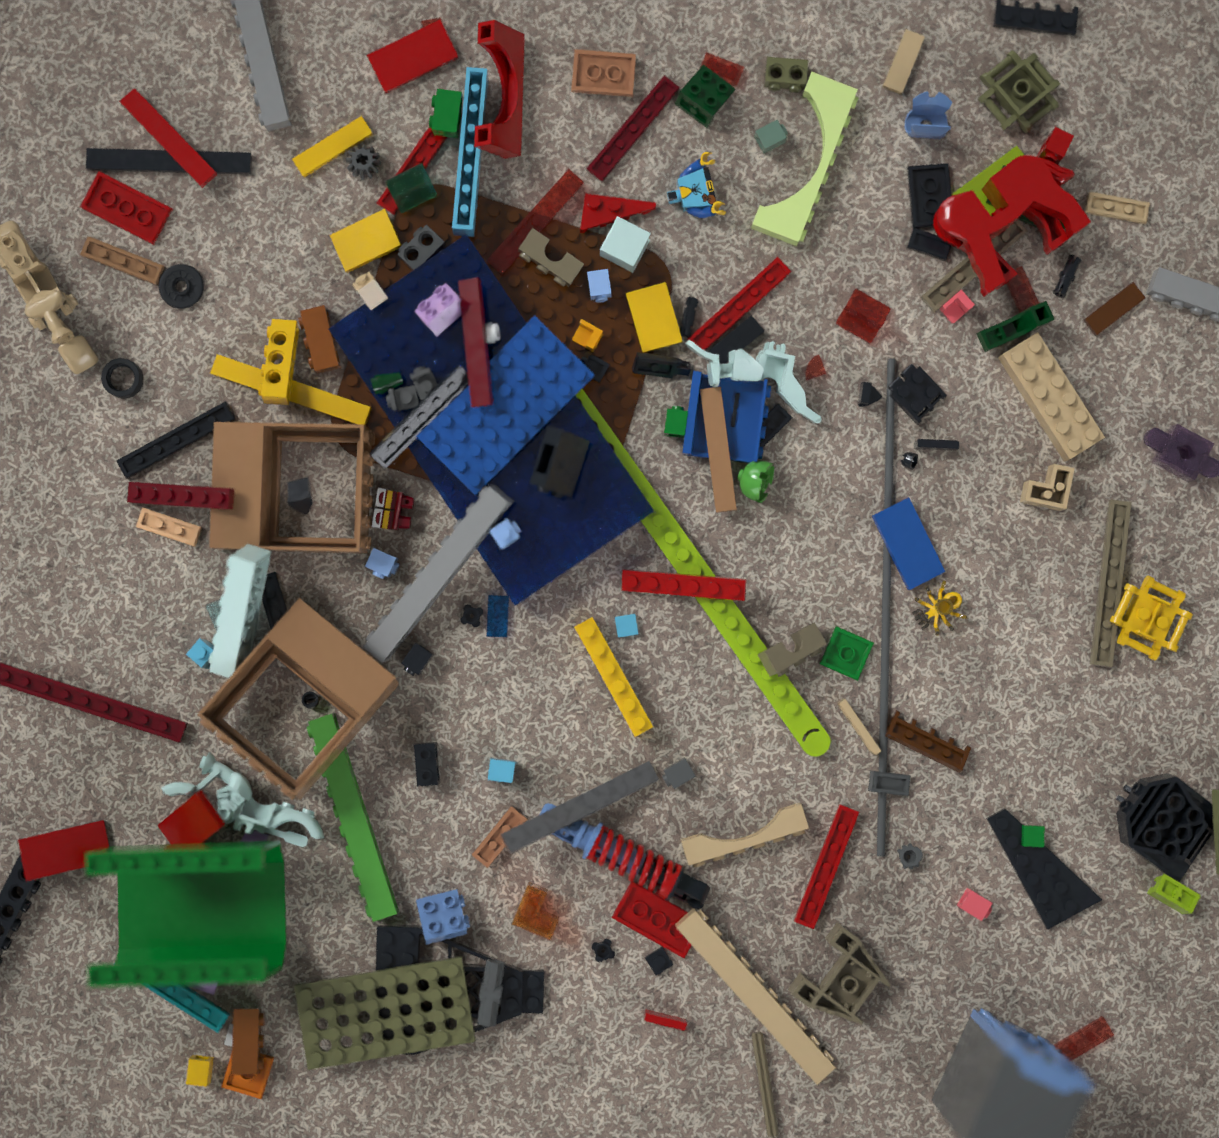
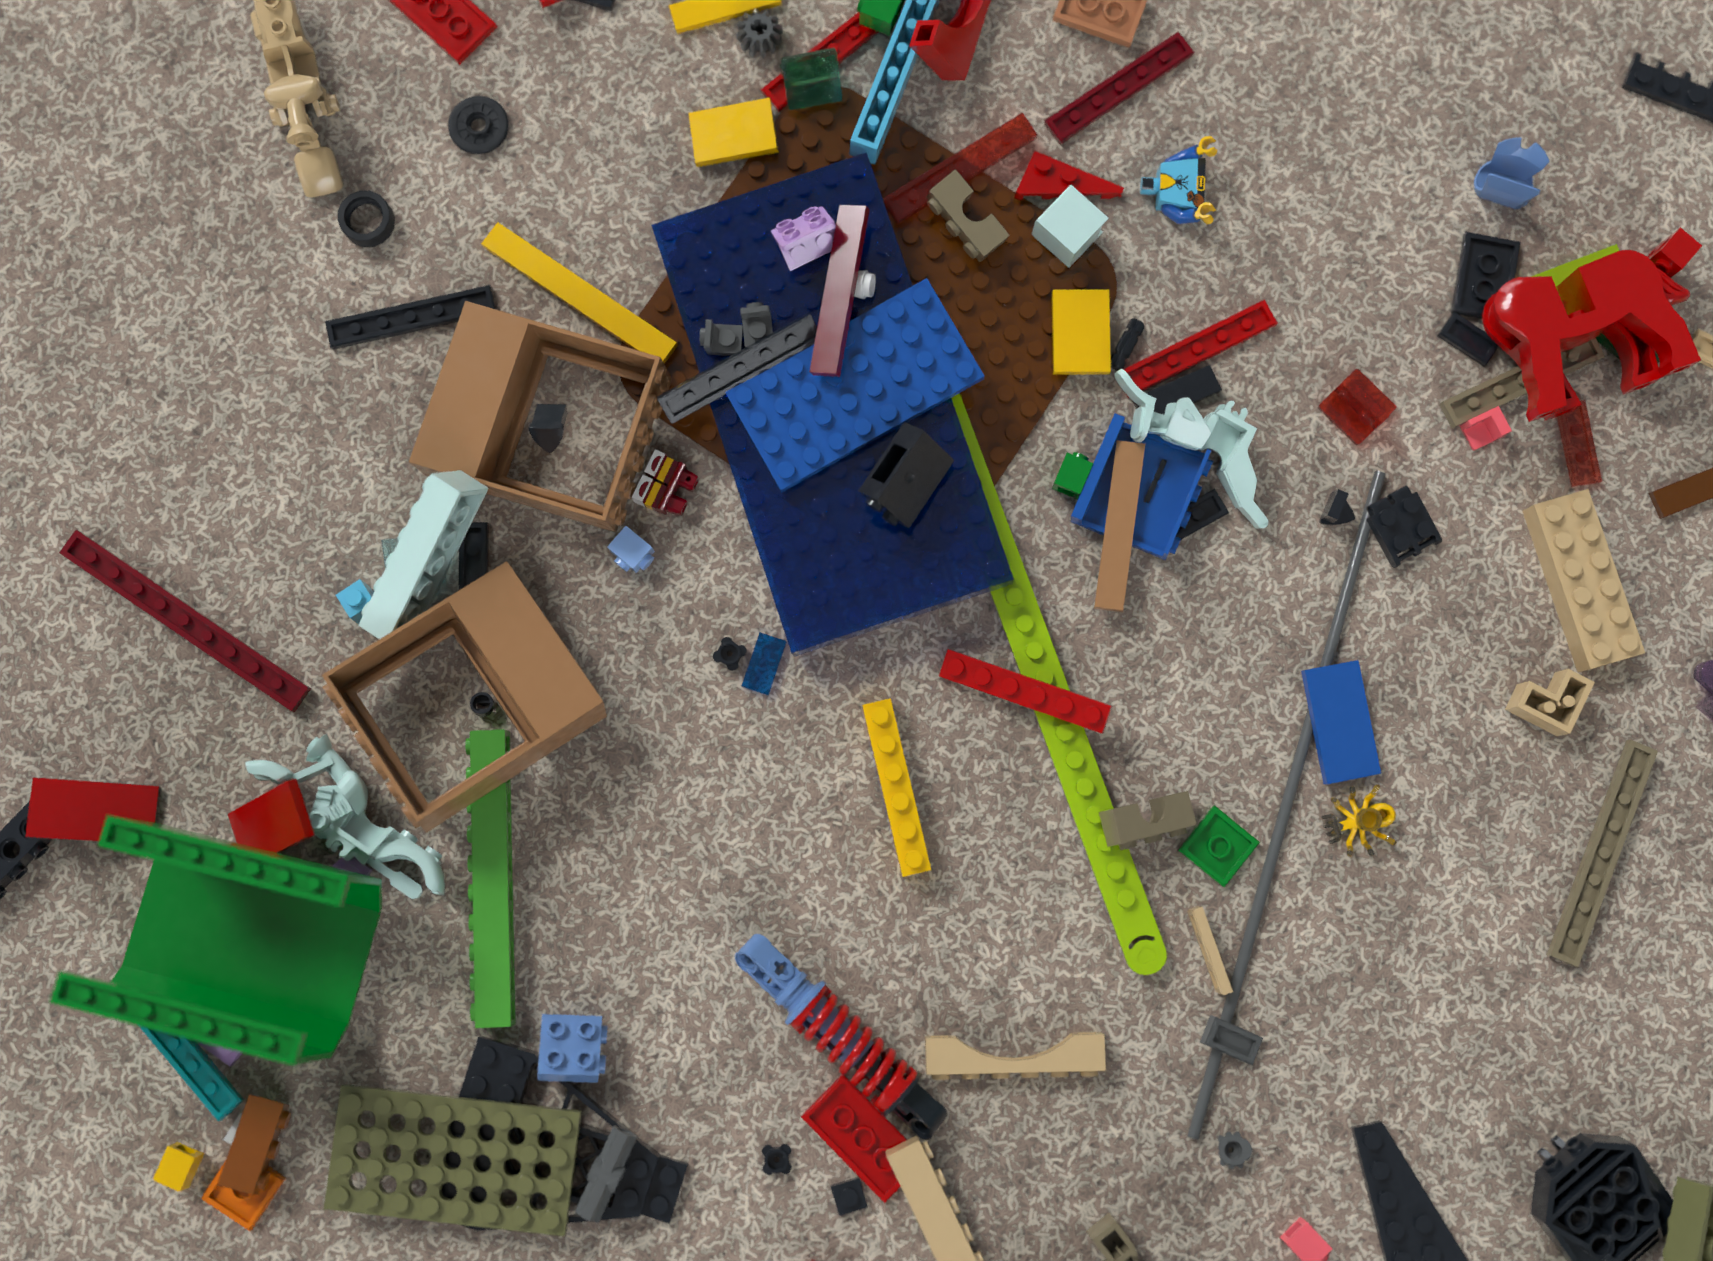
camera: 15 degrees right, 5 degrees down
(122, 260) = (413, 72): medium nougat tile -> none
(169, 527) = (367, 425): light nougat tile -> none
(181, 495) = (394, 385): dark red plate -> none
(279, 392) = (564, 289): yellow brick -> none
(319, 339) = (635, 240): dark orange brick -> none
(369, 290) = (718, 187): tan slope -> none
(383, 382) = (702, 309): dark green cone -> none
(415, 245) = (797, 155): dark grey brick -> none
(416, 659) = (639, 690): black brick -> none
(426, 764) = (611, 834): black brick -> none
(438, 573) = (701, 581): light grey brick -> none
(493, 843) = (680, 961): nougat plate -> none
(501, 770) = (709, 871): medium azure panel -> none
(506, 533) = (807, 551): light blue brick -> none
(531, 916) = (691, 1081): clear orange brick -> none
(579, 807) = (799, 951): flat silver tile -> none
(587, 335) = (988, 330): light orange panel -> none
(595, 365) = (991, 371): black tile -> none
(599, 285) = (1021, 269): light blue brick -> none
(626, 625) = (932, 725): medium azure tile -> none
(660, 366) = (1071, 395): black hinge -> none
(678, 773) = (947, 944): dark grey brick -> none
(704, 95) = (1222, 70): dark green bracket -> none
(725, 69) = (1253, 45): clear red plate -> none
(755, 479) = (1159, 578): bright green cylinder -> none
(771, 136) = (1296, 144): sand green brick -> none
(785, 68) = (1338, 64): olive brick -> none
(814, 368) = (1275, 457): clear red tile -> none
(826, 866) = (1114, 1131): red plate -> none
(832, 105) = (1385, 126): yellowish green arch -> none
(903, 61) = (1493, 99): tan tile -> none
(910, 460) = (1371, 612): black hinge -> none
(927, 743) = (1297, 1000): reddish brown hinge -> none
(931, 444) = (1413, 601): black tile -> none
(1016, 326) = (1561, 475): dark green arch -> none
(1019, 90) = (1637, 175): olive brick -> none
(1033, 835) = (1411, 1170): green tile -> none
(1067, 276) = (1642, 429): black pin -> none
(1150, 617) = (1647, 914): yellow brick -> none

